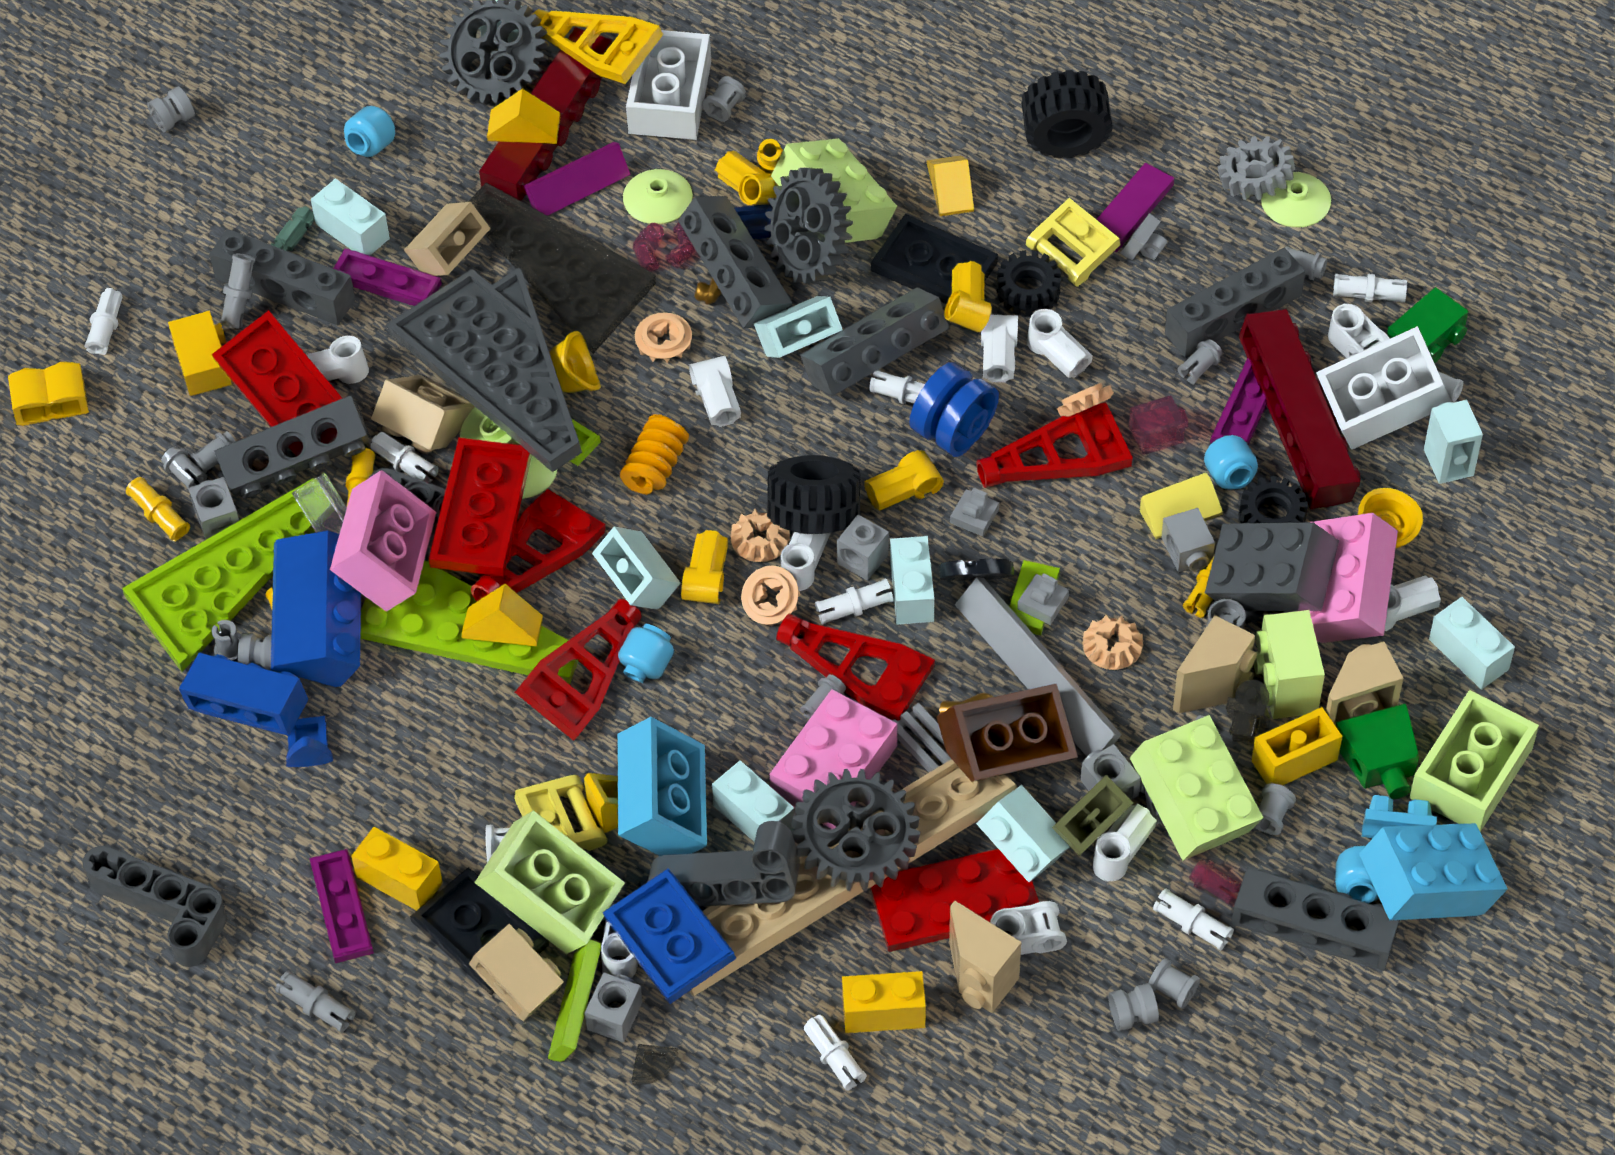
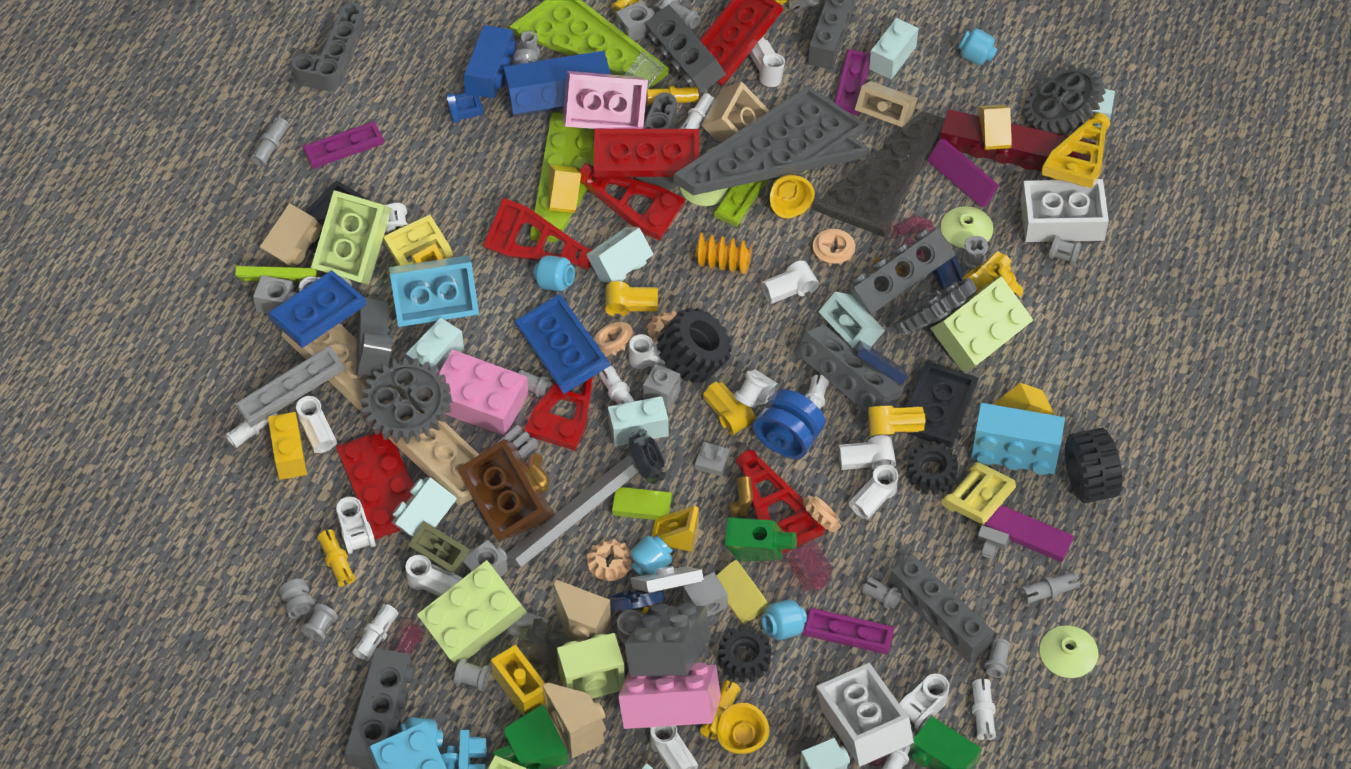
camera: 80 degrees right, 0 degrees up
(295, 229) = (872, 21): sand green axle -> none
(397, 869) = (366, 163): yellow brick -> none
(652, 1063) = (239, 326): clear smoke tile -> none
(709, 181) = (975, 249): none -> light grey bush
(771, 652) = (562, 343): none -> blue tile
(796, 981) = (290, 386): none -> light grey tile
(853, 962) = (315, 425): none -> white piece
(870, 304) = (881, 362): none -> dark blue tile
(885, 443) = (756, 389): none -> white piece
(983, 958) = (317, 492): tan slope -> none
(1013, 183) = (1018, 438): none -> medium azure brick
(1043, 598) = (634, 506): light grey tile -> none
(1050, 481) = (745, 497): none -> pearl gold arm
(1071, 957) = (336, 558): none -> yellow pin
(1084, 556) = (678, 528): none -> yellow slope
(1121, 590) = (650, 555): none -> medium azure head
(1127, 462) = (757, 539): none -> green torso
(1168, 568) = (667, 578): none -> white plate
(1190, 607) = (634, 599): none -> dark blue tile
(1213, 197) = (1049, 587): none -> light grey pin
(1256, 168) = (1084, 612): light grey gear -> none
(1299, 409) = (880, 646): dark red brick -> none

